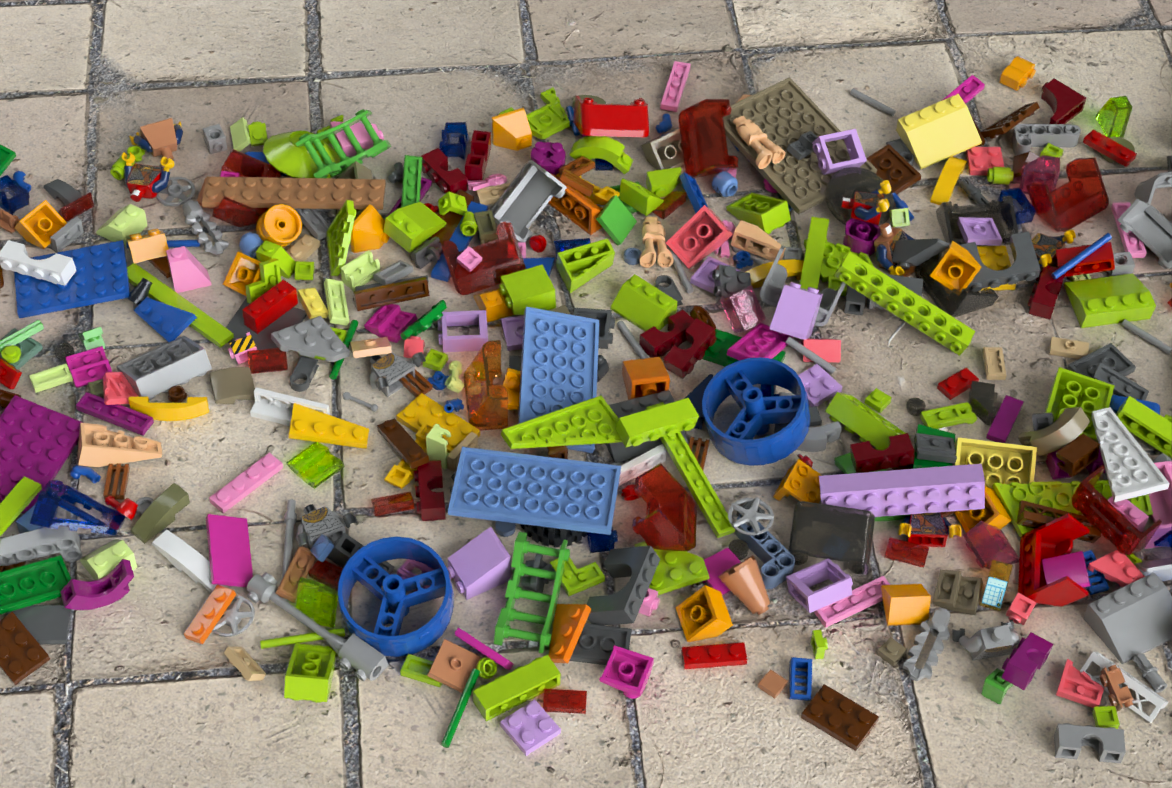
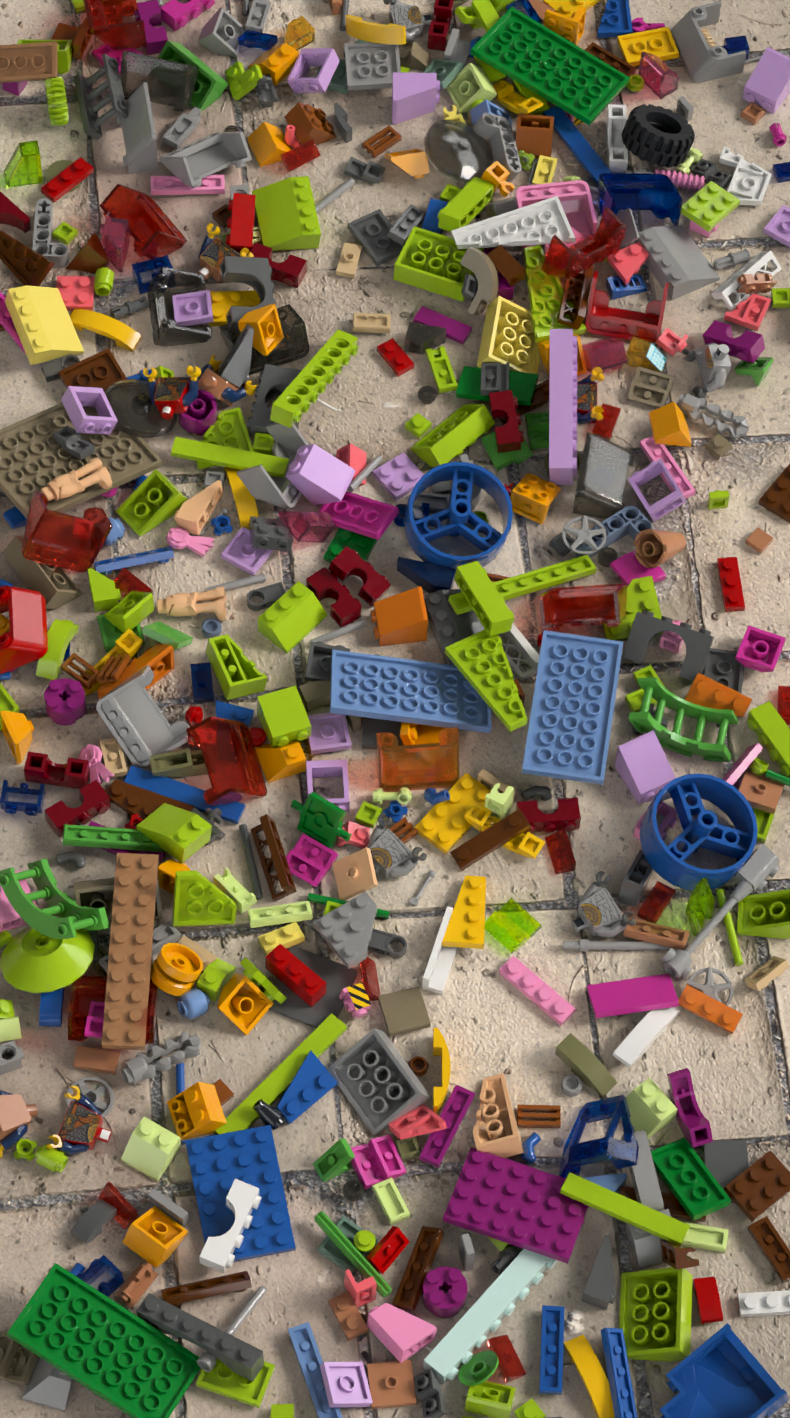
camera: 90 degrees left, 10 degrees up
(126, 507) = (581, 1098): red bar -> none
(186, 270) = (243, 1068): bright pink slope -> none
(304, 270) = (231, 948): lime plate -> none
(322, 548) = (633, 904): medium blue tile -> none
(393, 273) = (237, 858): light grey tile -> none
(453, 203) = (140, 794): lime bracket -> none
(468, 225) = (169, 779): lime cone -> none
(469, 259) = (231, 775): bright pink plate -> none
(699, 237) = (199, 556): coral slope -> none
(701, 314) = (310, 566): reddish brown plate -> none
(704, 615) = (690, 587): light orange slope -> none
(805, 664) = (744, 522): blue slope -> none
(1068, 565) = (635, 299): dark pink slope -> none
(1085, 253) = (247, 221): blue bar -> none

